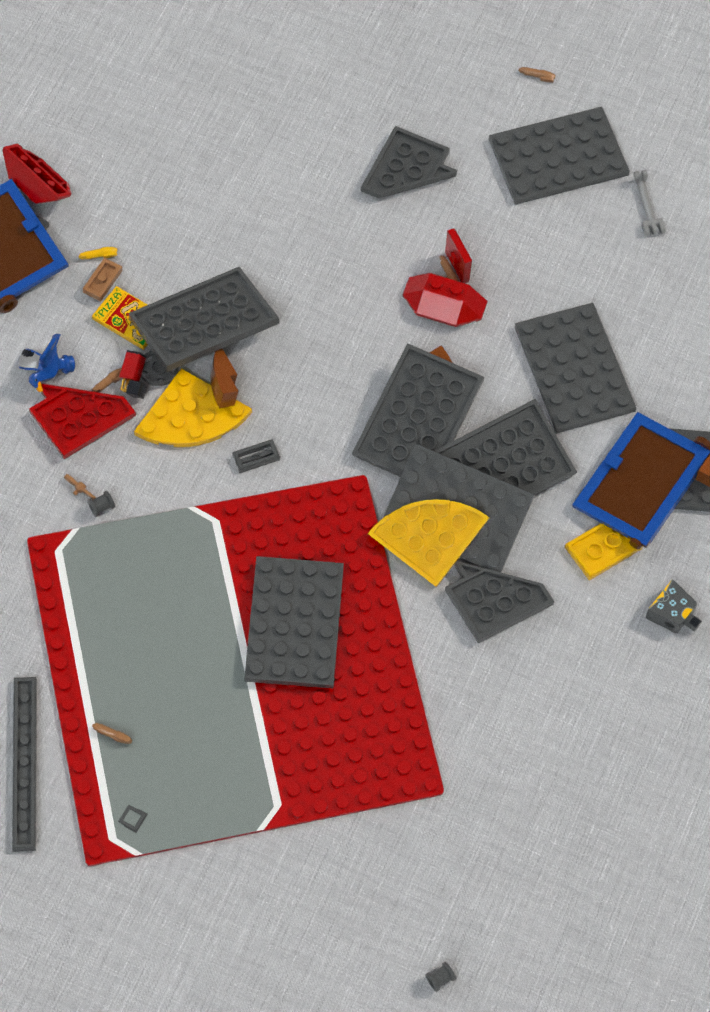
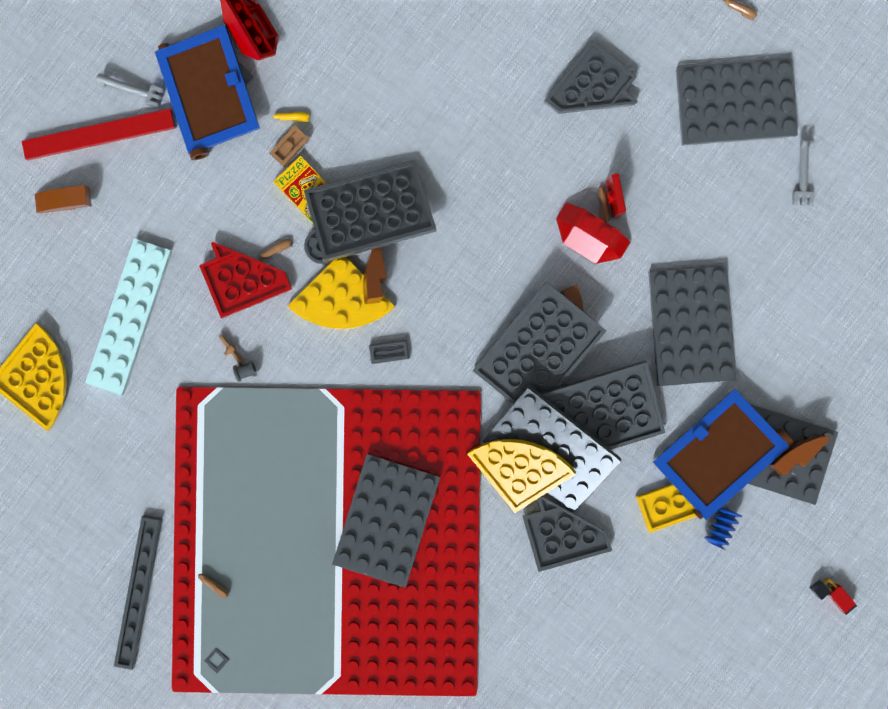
camera: 15 degrees right, 25 degrees up
(45, 364) = (220, 224): blue animal -> none
(131, 372) = (296, 247): piece -> none
(667, 553) = (722, 528): none -> blue piece
(674, 609) = (713, 579): dark grey torso -> none

